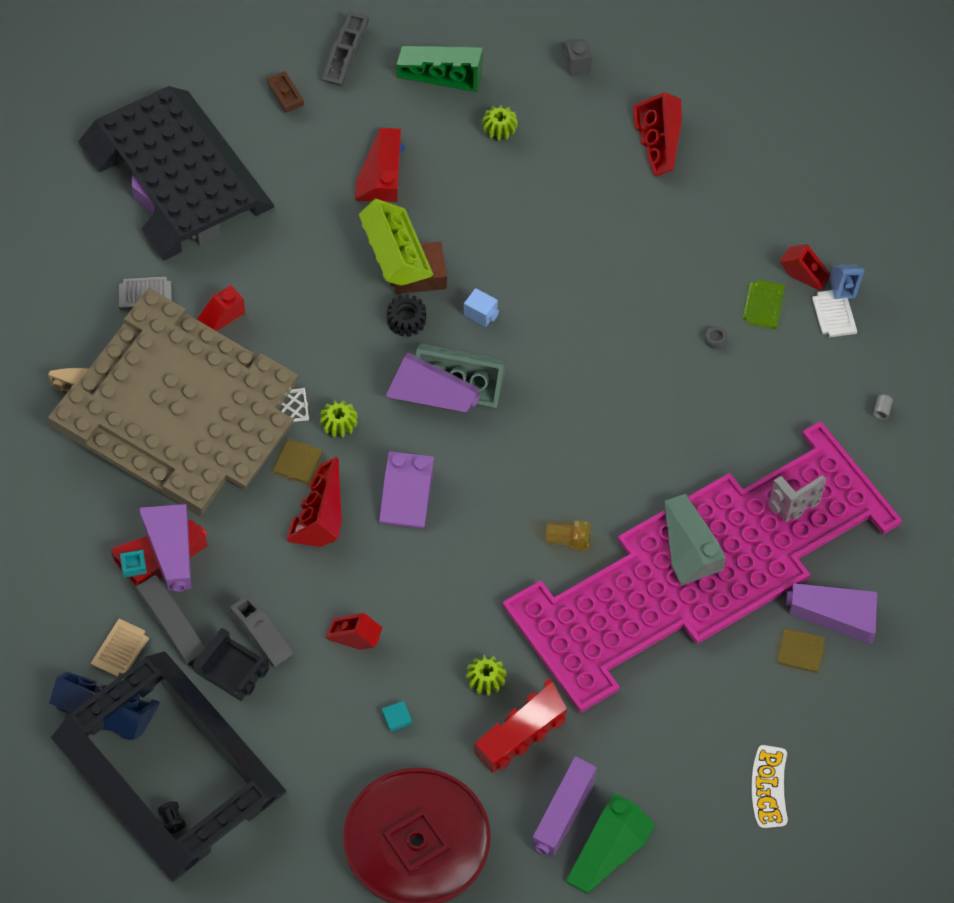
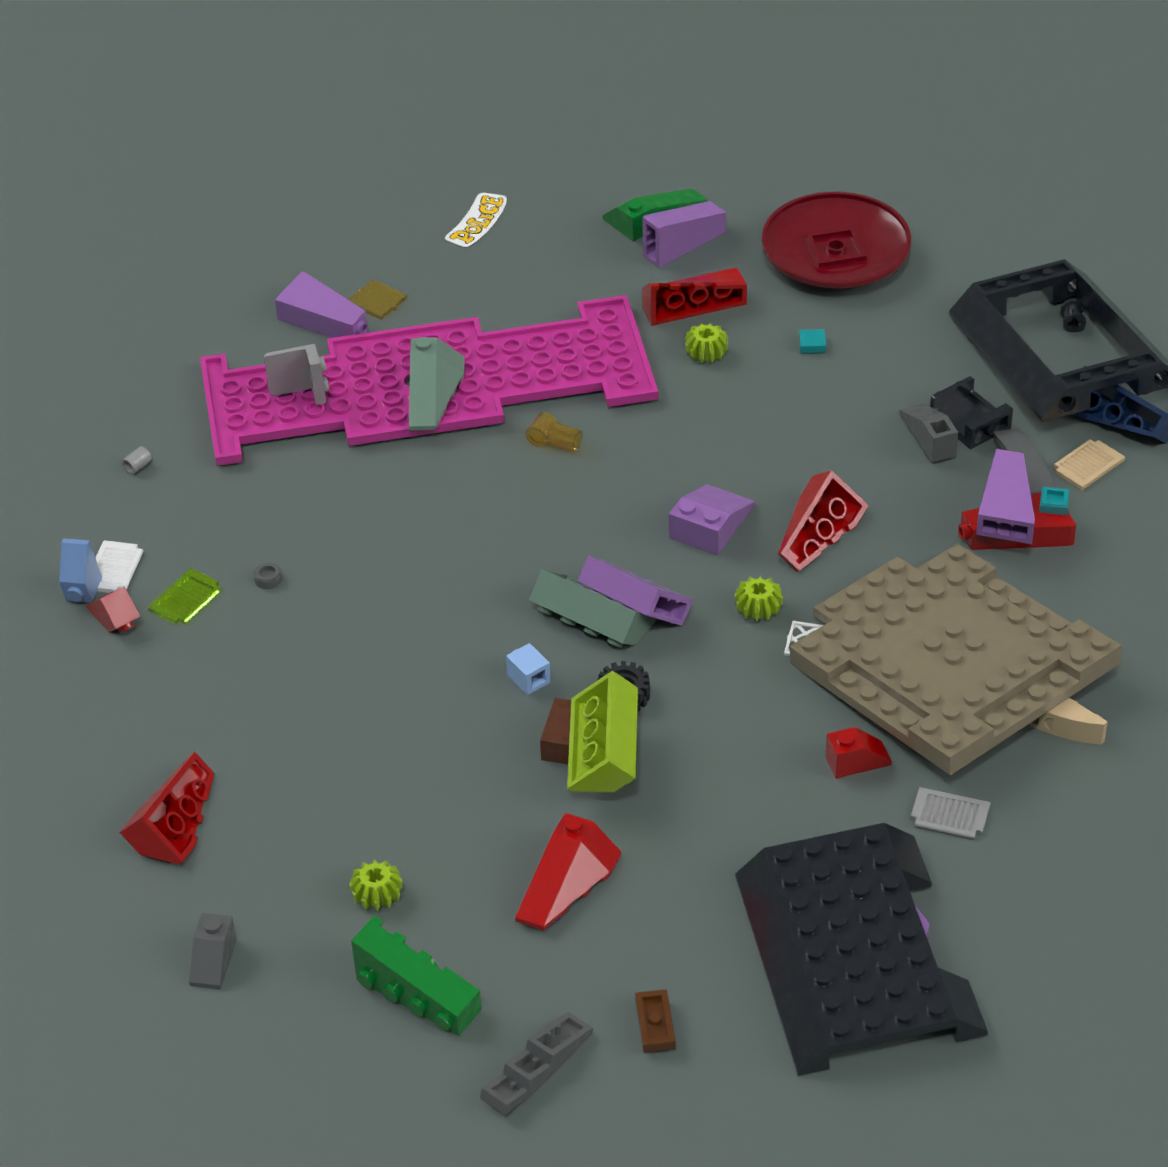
camera: 155 degrees left, 15 degrees down
(297, 461) = (822, 580): clear yellow piece -> none
(355, 631) = (828, 406): red slope -> none

